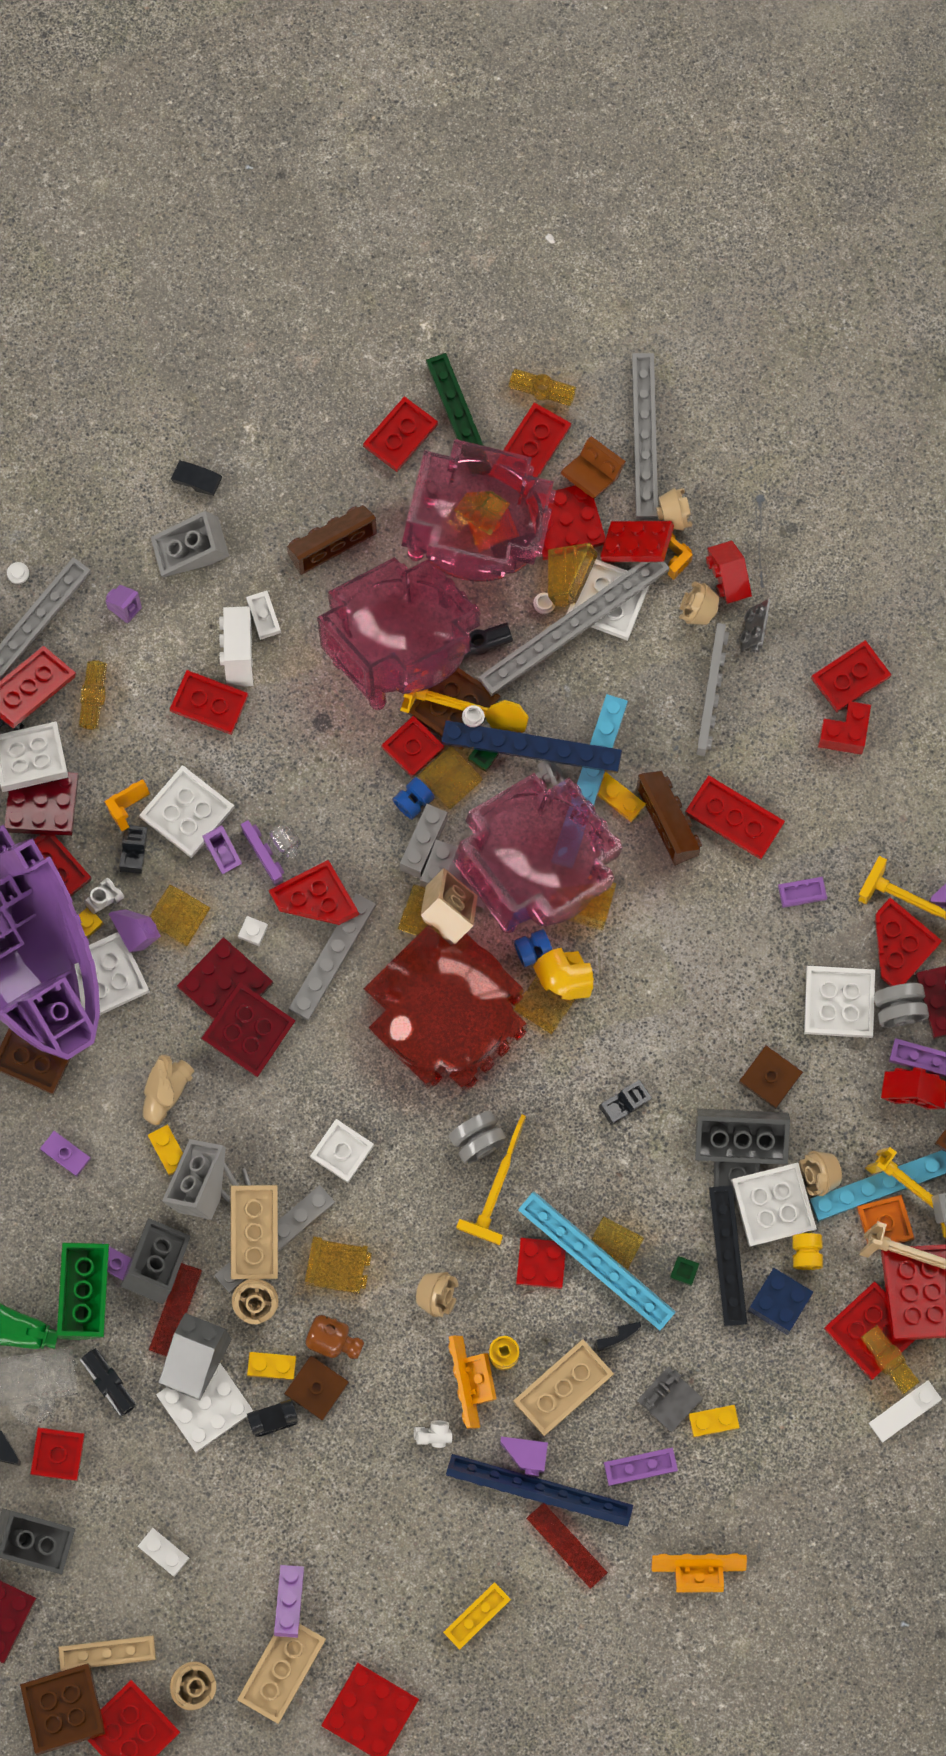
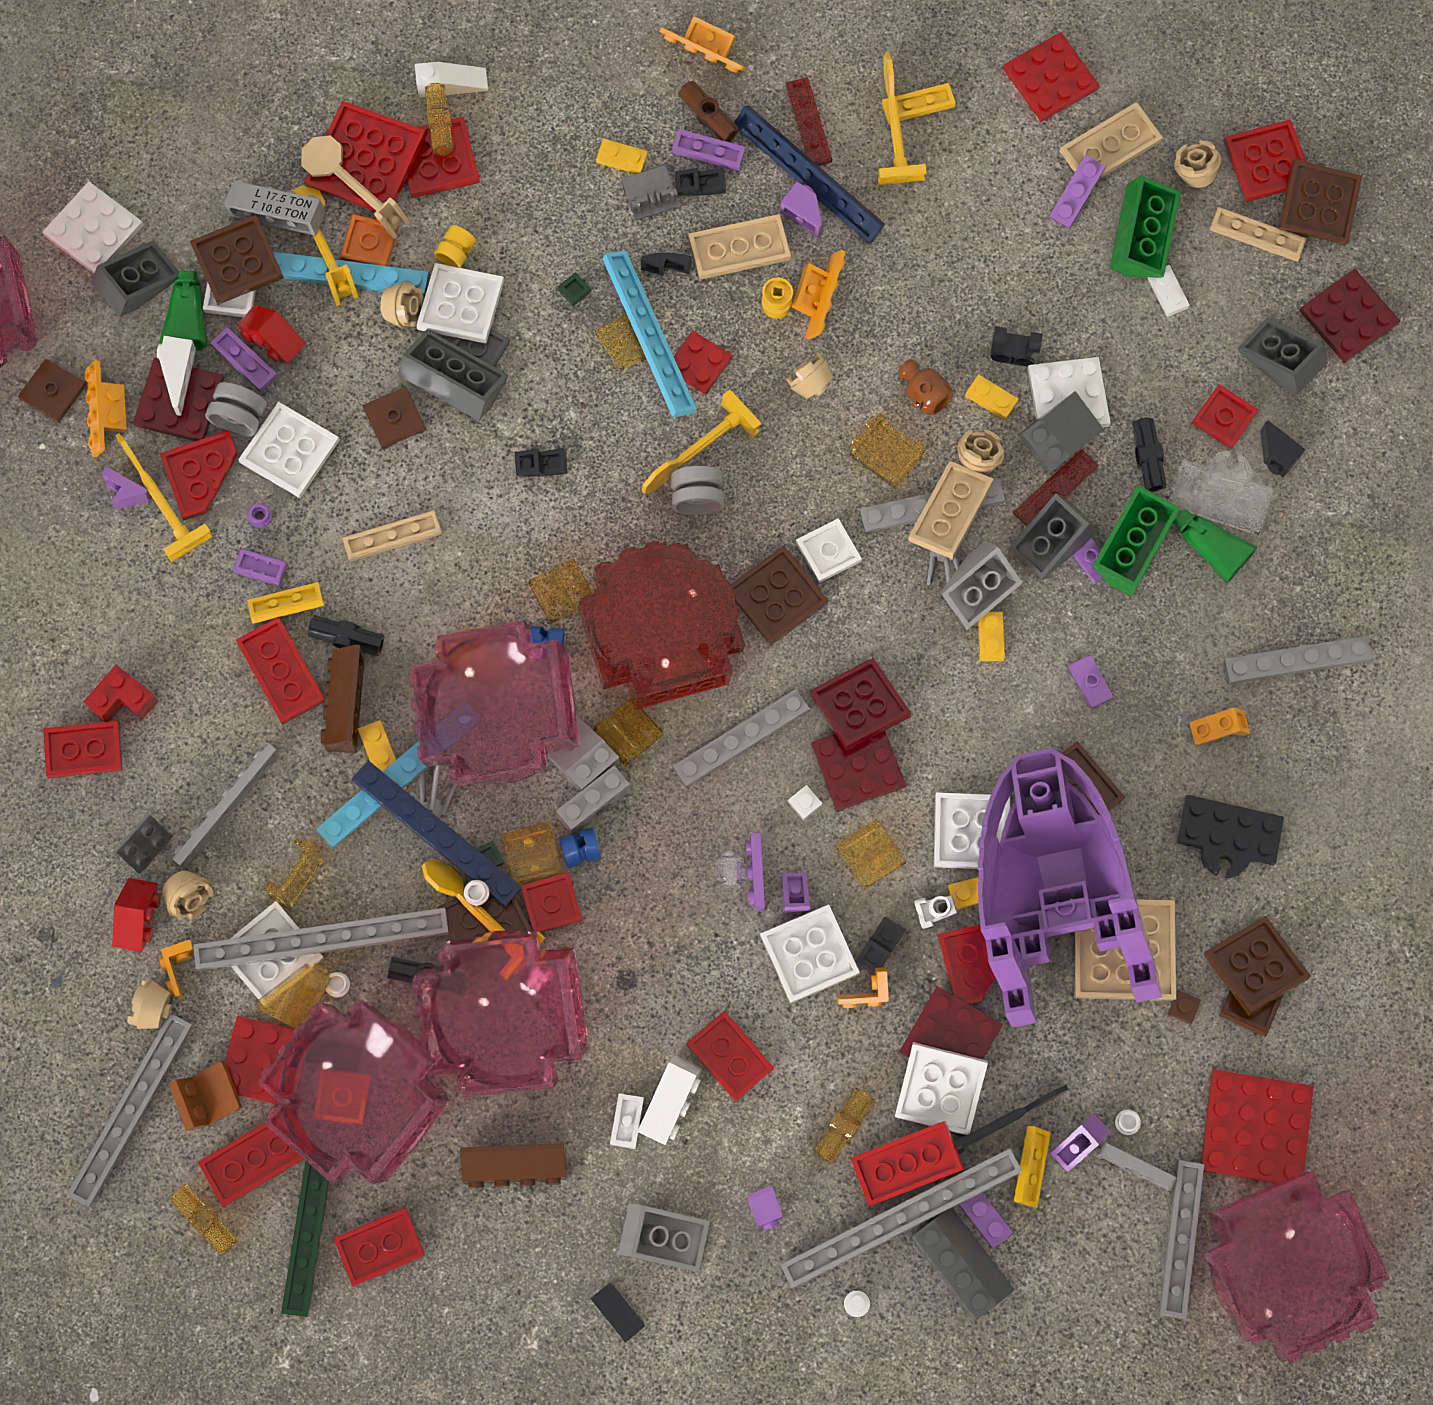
camera: 155 degrees left, 0 degrees up
(135, 929) = (920, 859): medium lavender slope -> none
(164, 1087) = (967, 688): tan animal -> none
(210, 1595) = (1145, 229): none -> green slope
(316, 896) = (726, 800): red plate -> none
(316, 1388) = (960, 358): reddish brown plate -> none
(365, 1089) = (777, 595): none -> reddish brown plate
(437, 1434) = (876, 263): white plate -> none
(449, 906) = (607, 704): tan brick -> none
(458, 1537) = (901, 171): none -> yellow piece
(483, 509) = (345, 1099): slope -> none
(565, 974) = (530, 600): yellow brick -> none
(625, 640) = (299, 876): none -> clear yellow panel
(631, 1433) = (699, 183): none -> black slope
(637, 541) = (207, 992): red plate -> none
(676, 1508) = (716, 121): none -> reddish brown piece
(699, 872) = (345, 634): none -> black piece
(712, 976) = (392, 535): none -> tan tile
(728, 1256) = (527, 280): black plate -> none
(763, 873) = (285, 602): none -> yellow plate
(780, 1301) = (504, 219): dark blue brick -> none
(829, 928) = (257, 509): none -> medium lavender plate

